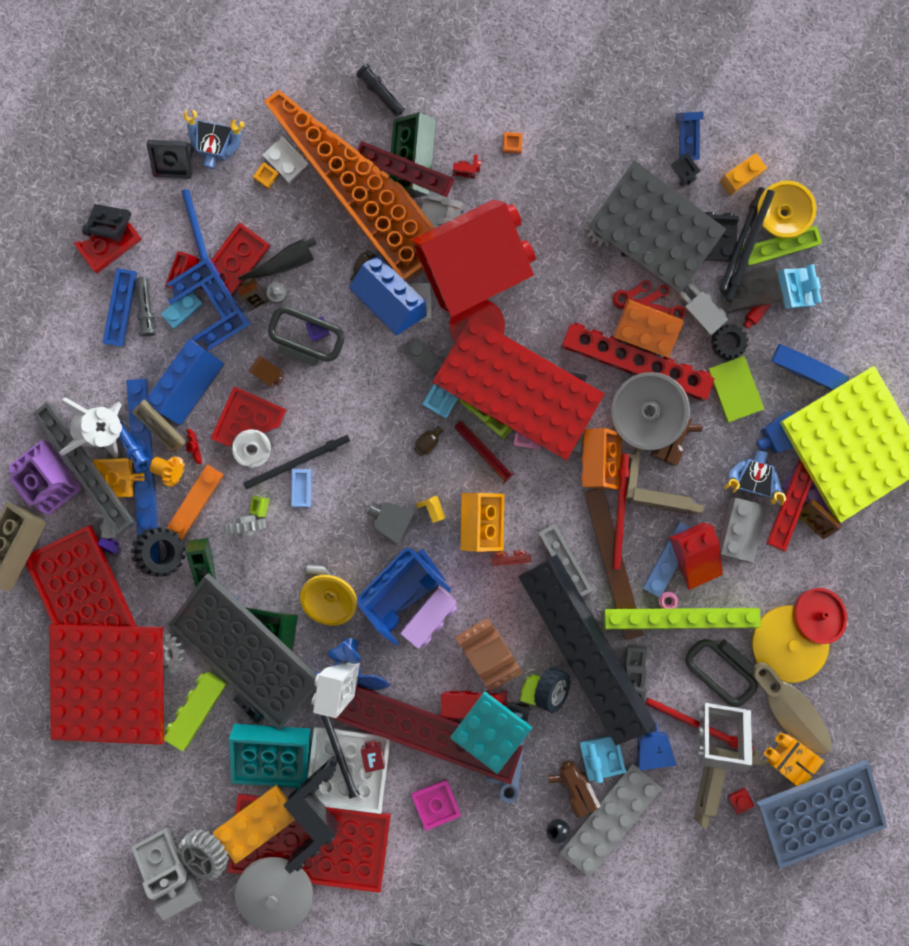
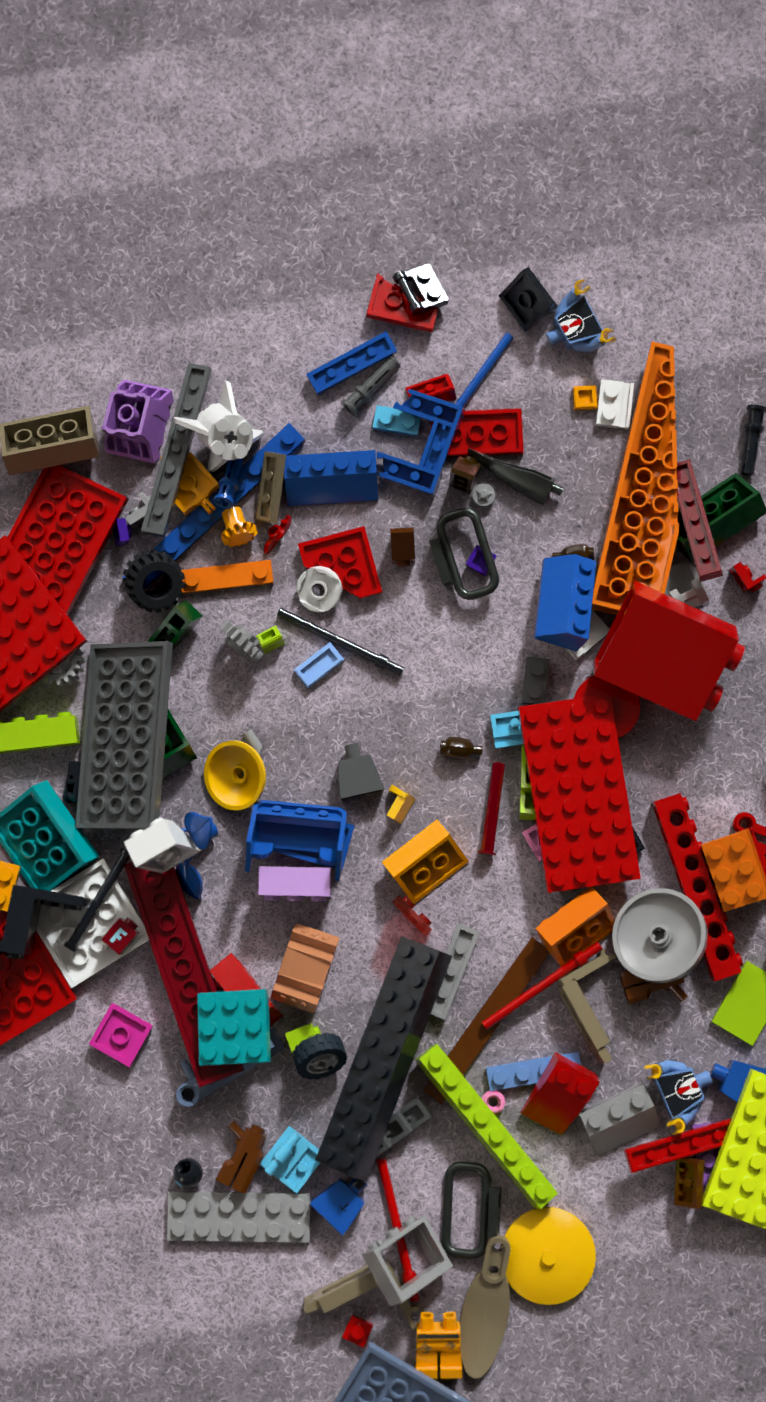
camera: 55 degrees right, 5 degrees down
(820, 616) = (597, 1261): red piece -> none

